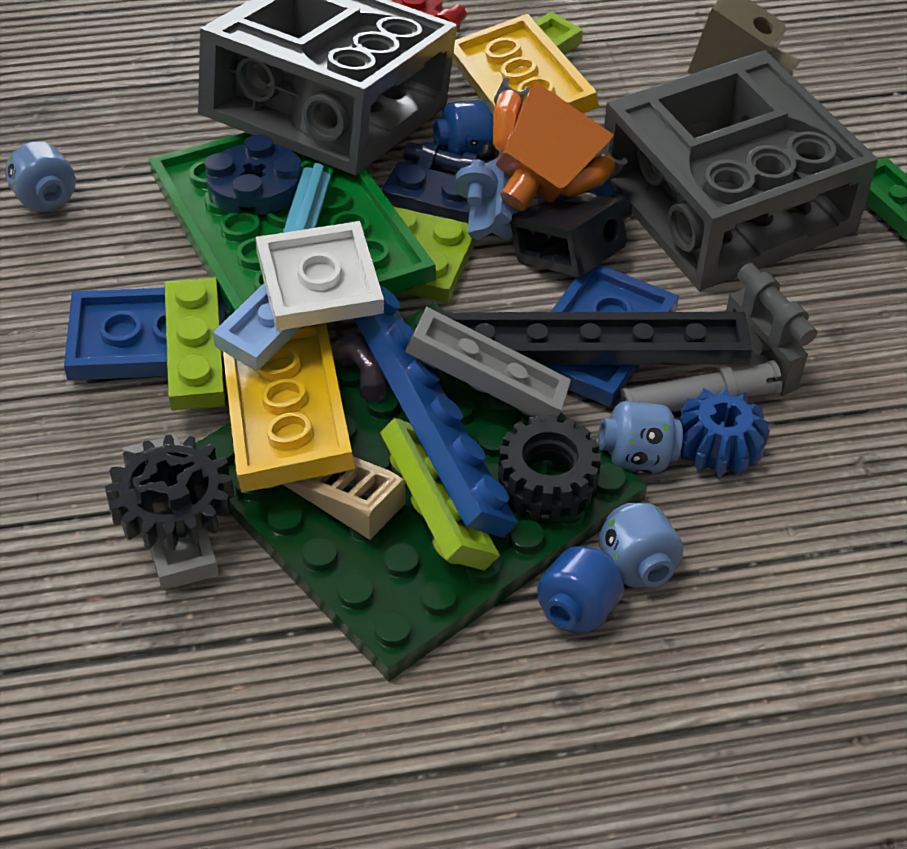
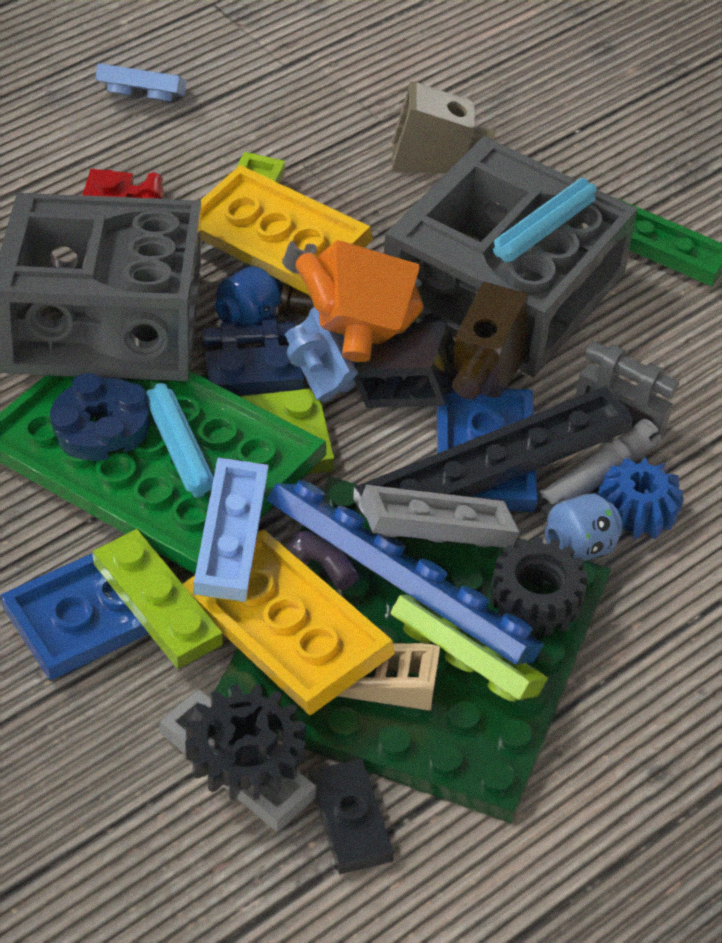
camera: 30 degrees left, 0 degrees up
(237, 606) = (351, 816): none -> black plate
(319, 275) = (258, 492): white plate -> none
(582, 587) = (620, 675): blue head -> none
(641, 544) = (642, 621): medium blue head -> none
(651, 233) = (484, 361): none -> dark brown torso
(768, 136) = (544, 220): none -> medium azure axle

